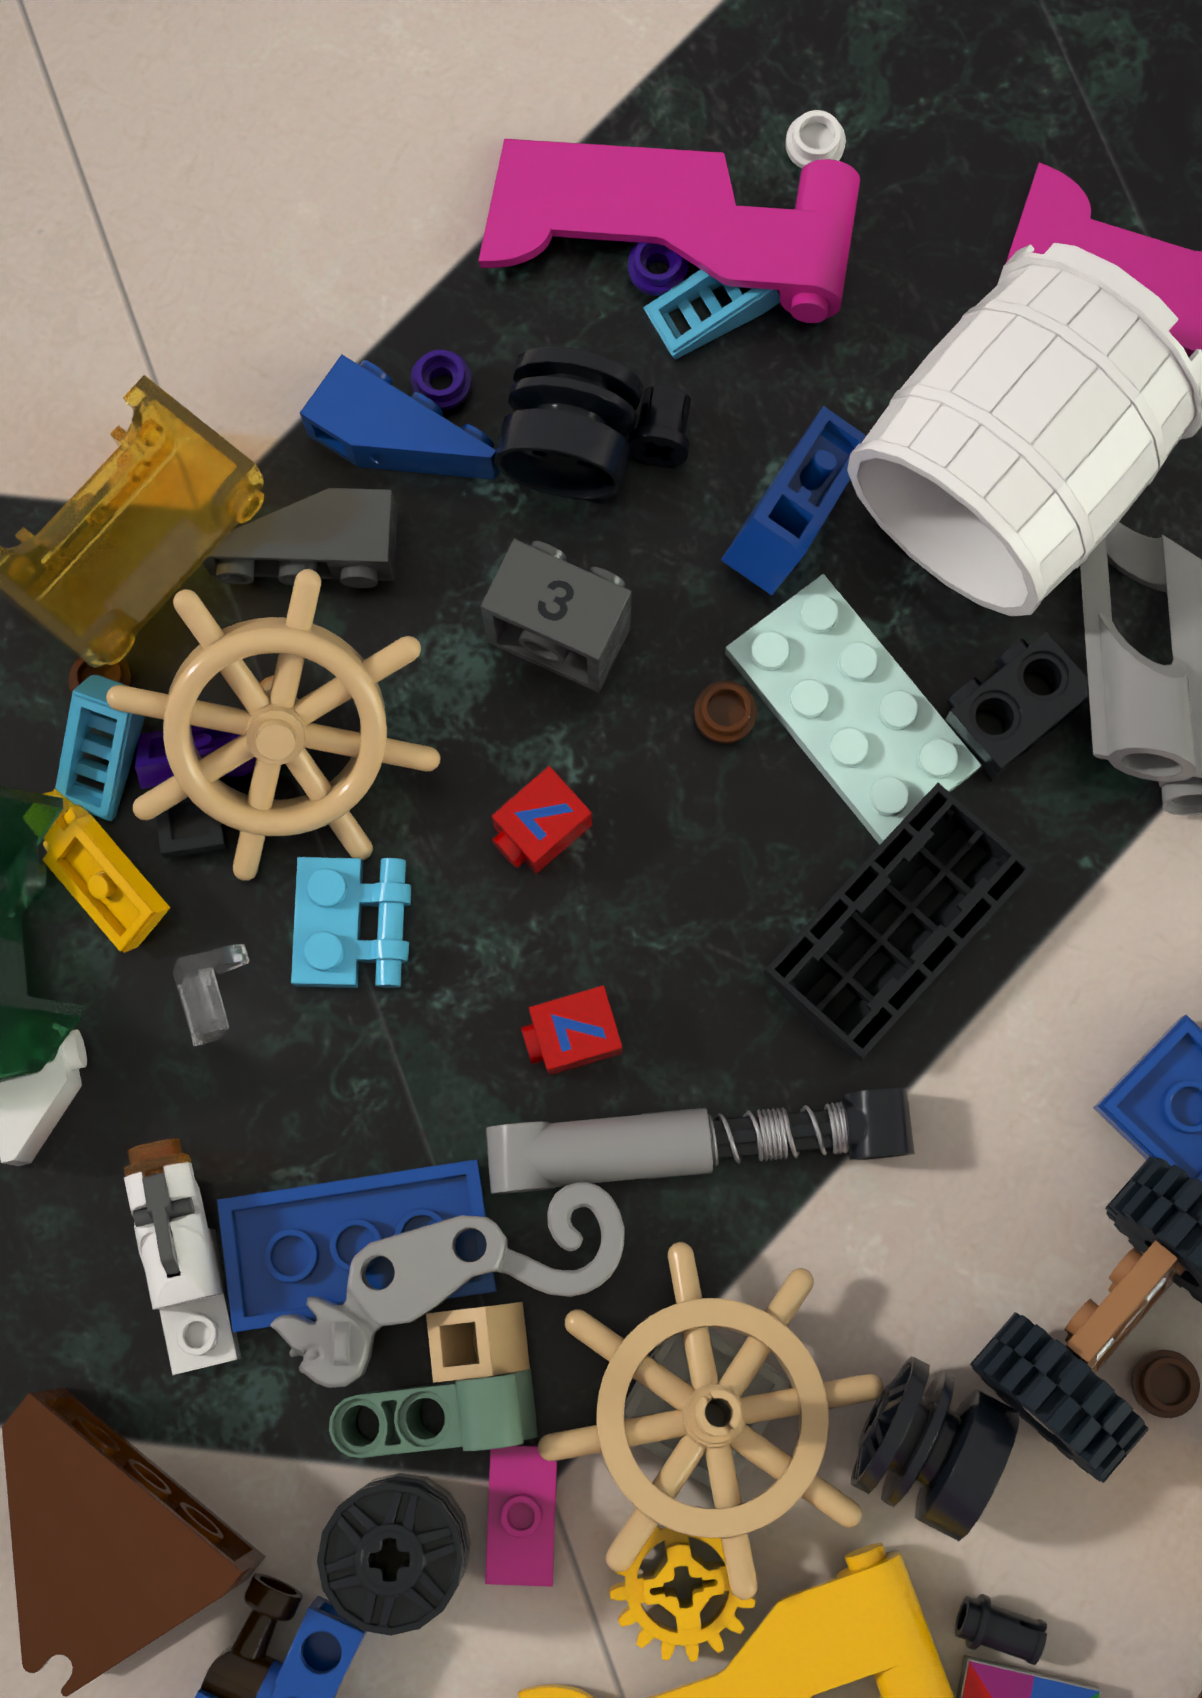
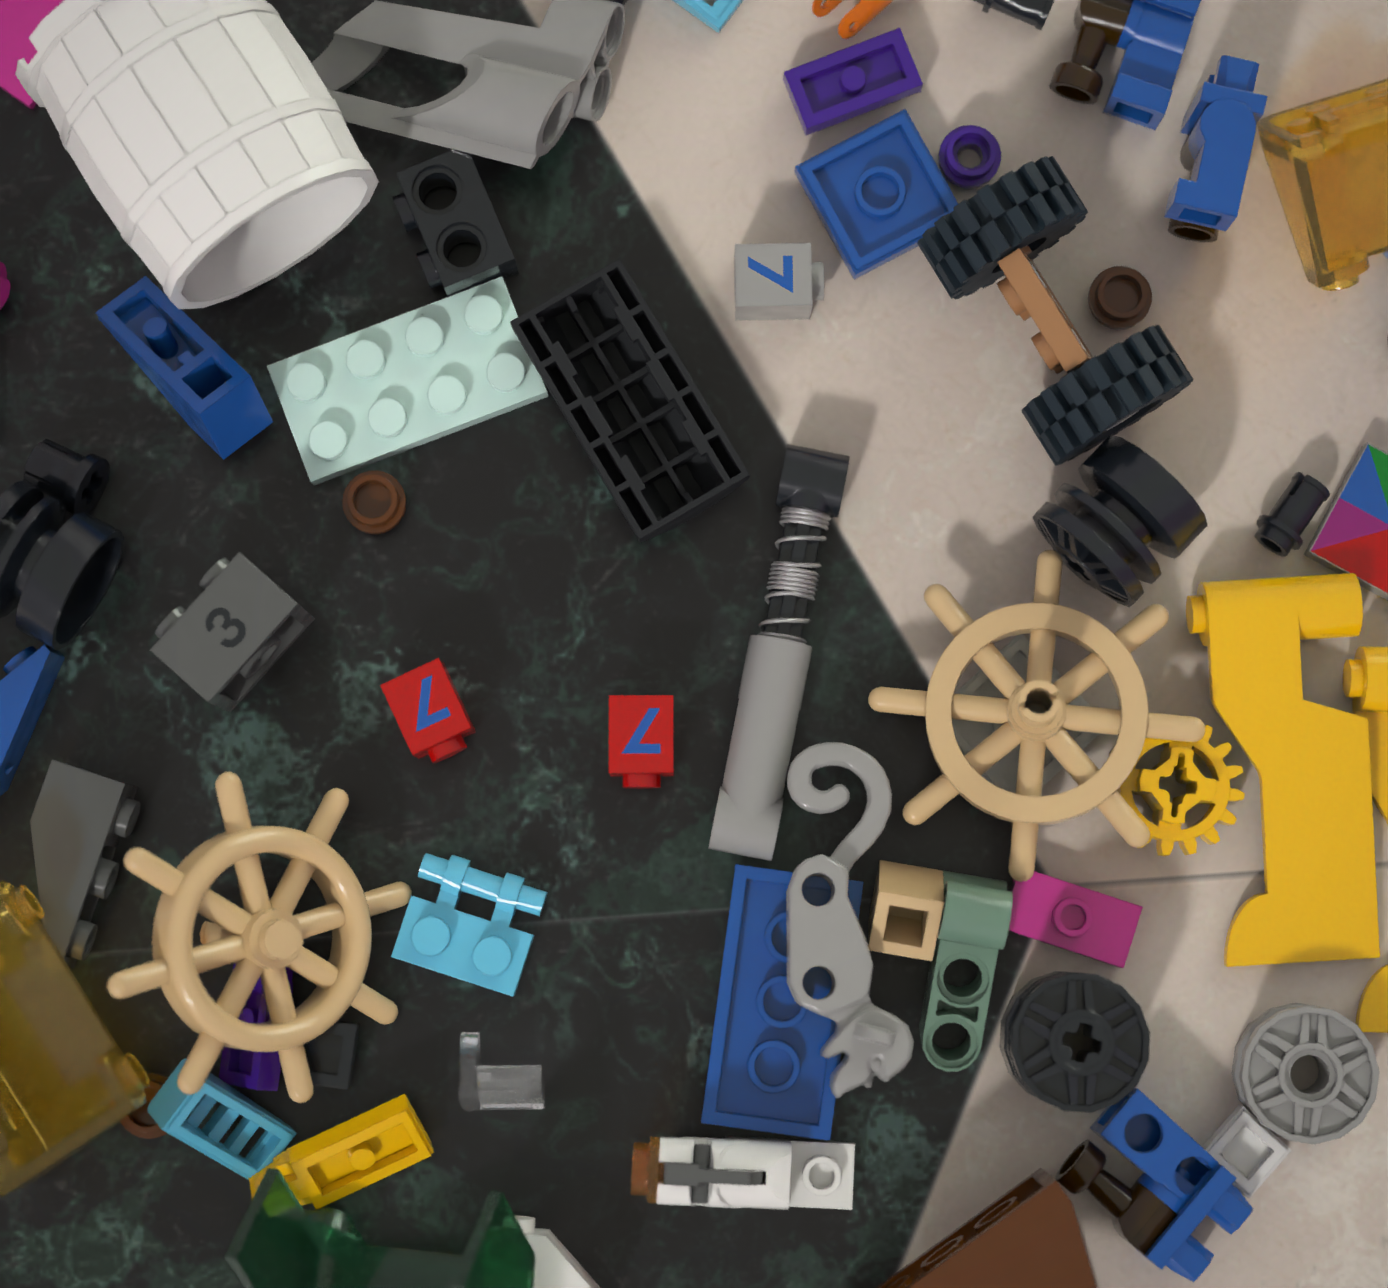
camera: 75 degrees left, 5 degrees up
(1064, 1029) = (776, 281): none -> light grey brick

